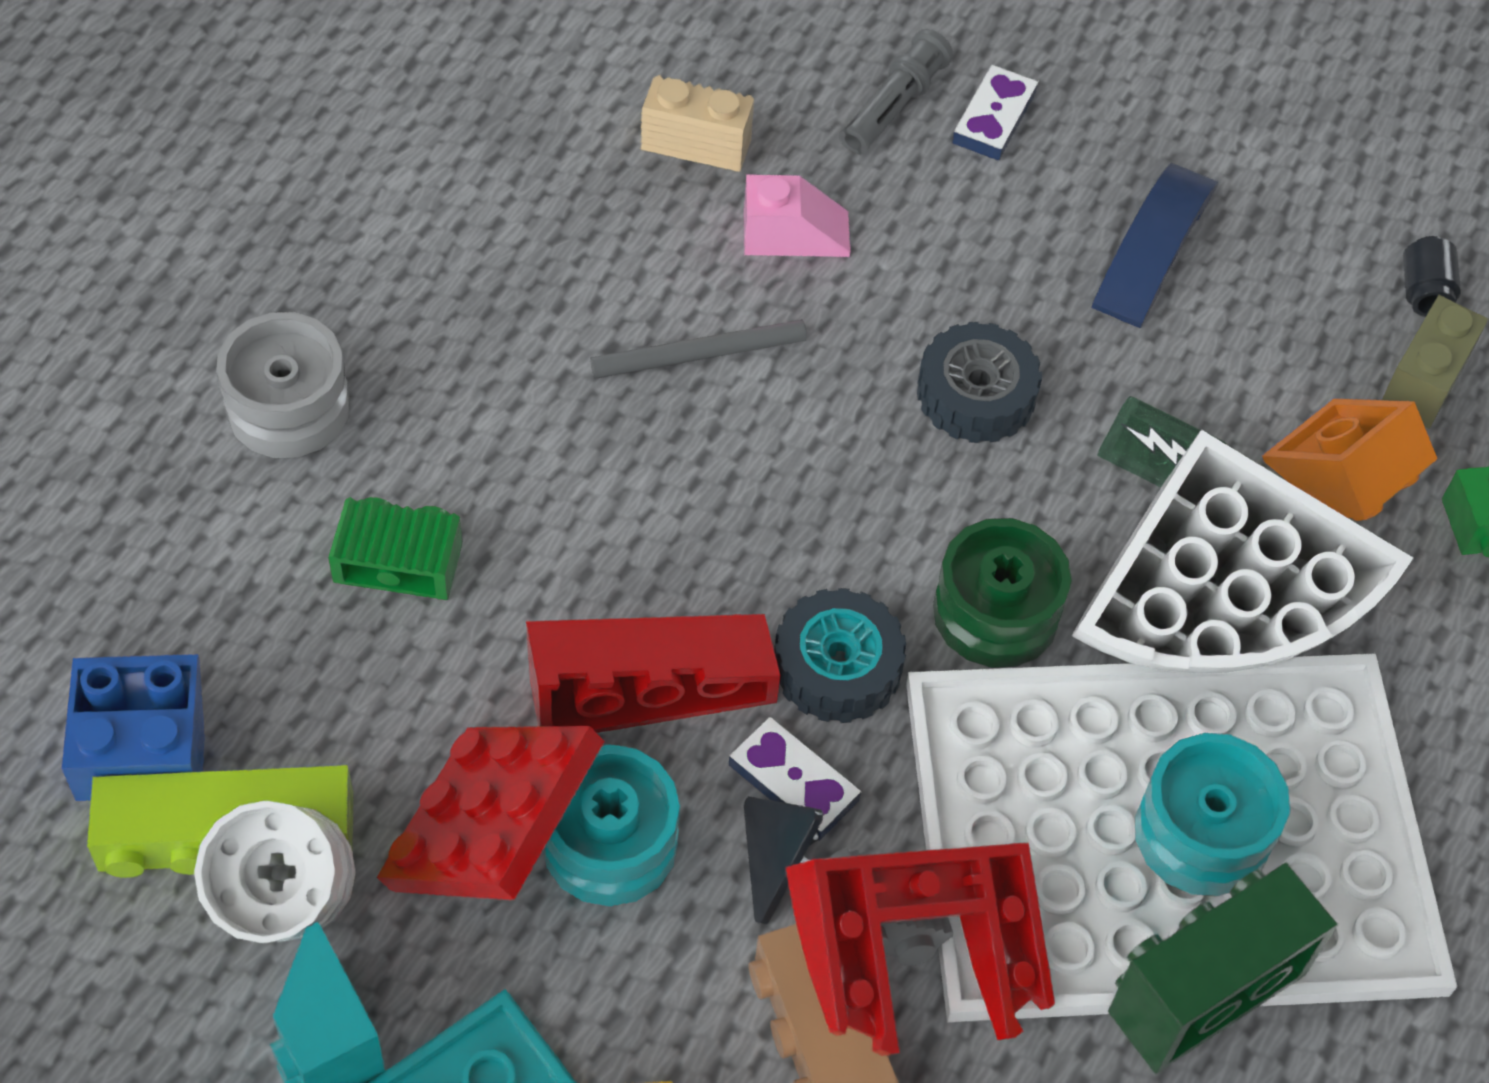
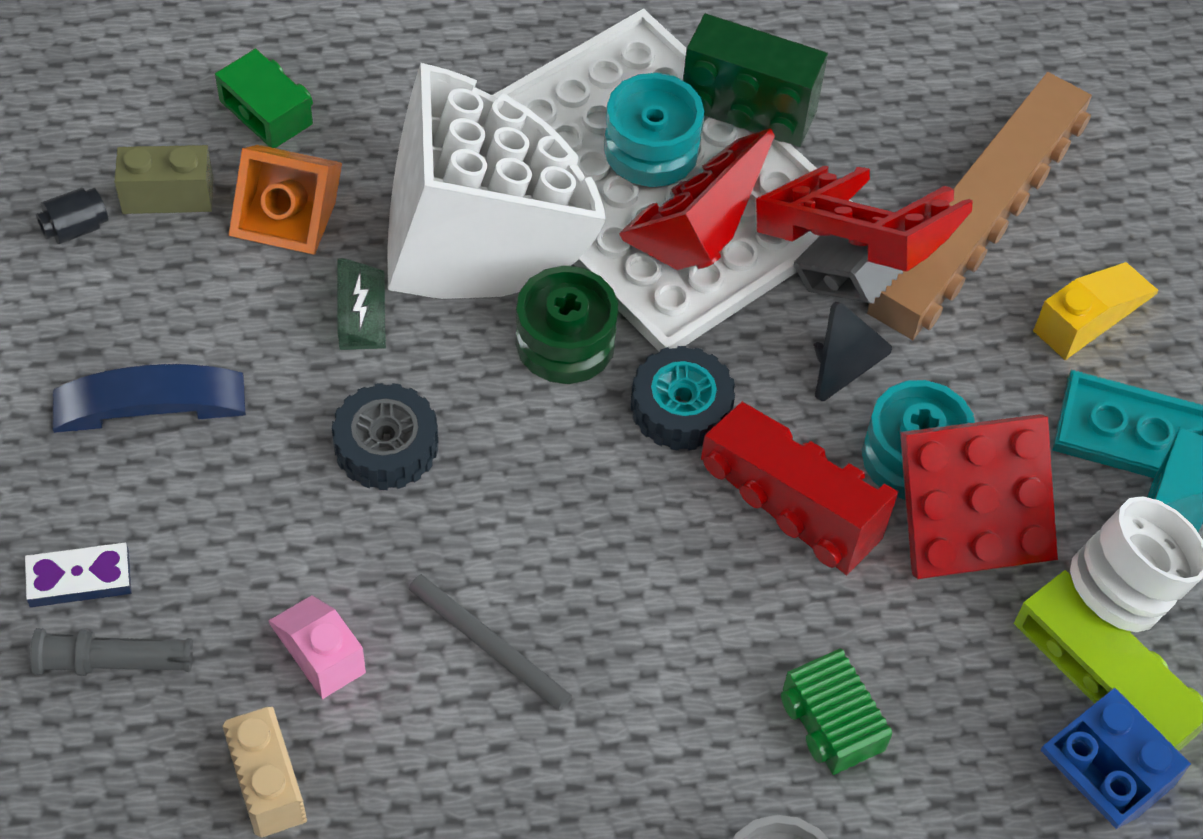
camera: 125 degrees left, 0 degrees up
(793, 774) = (786, 379): tile -> none
(1053, 782) = (704, 209): none -> red wedge

